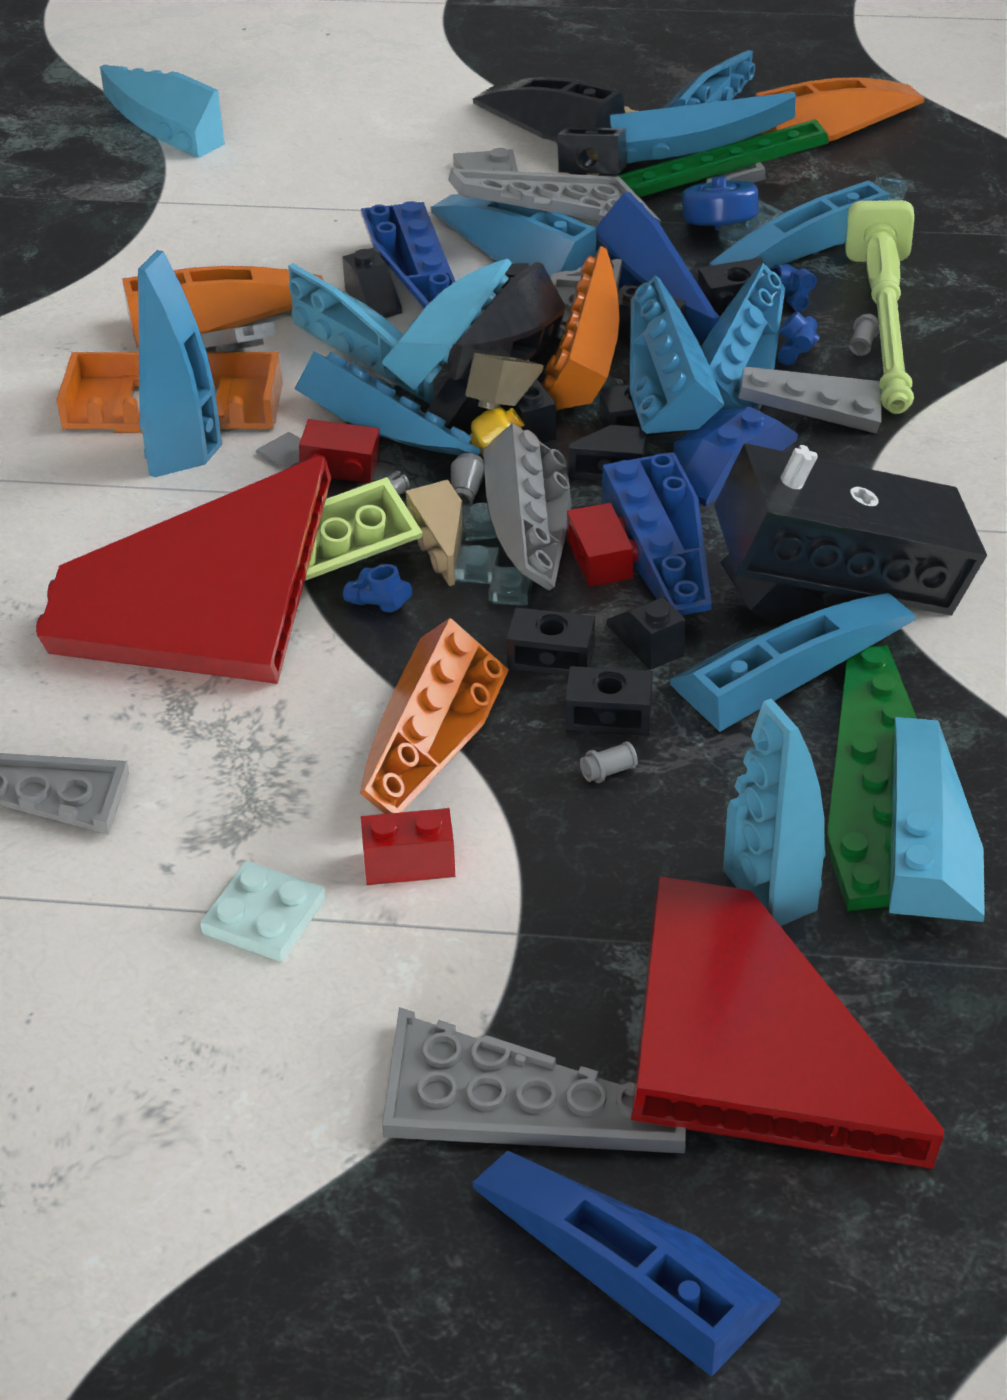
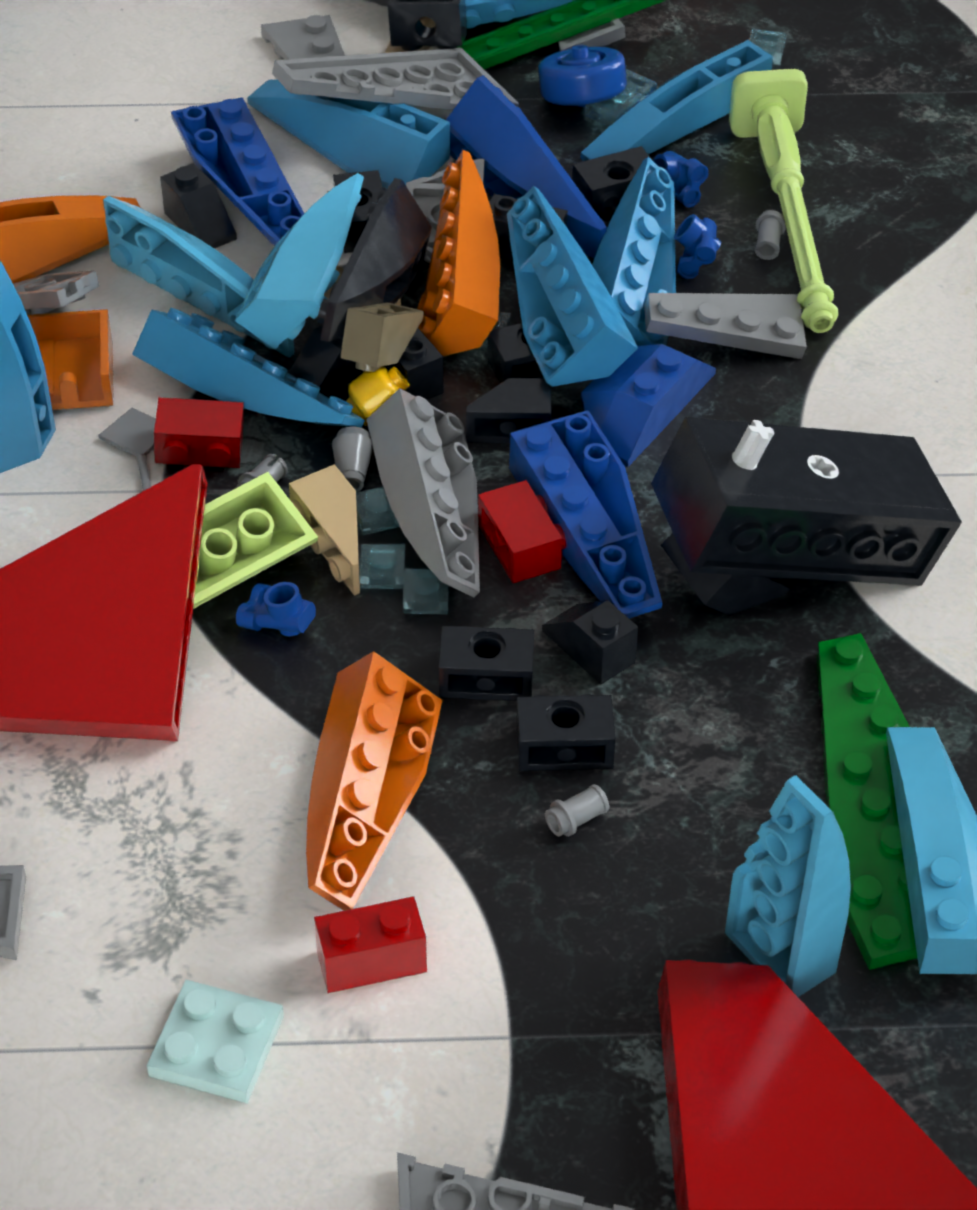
camera: 10 degrees left, 5 degrees up
(781, 660) = (744, 666): dark azure wedge -> none

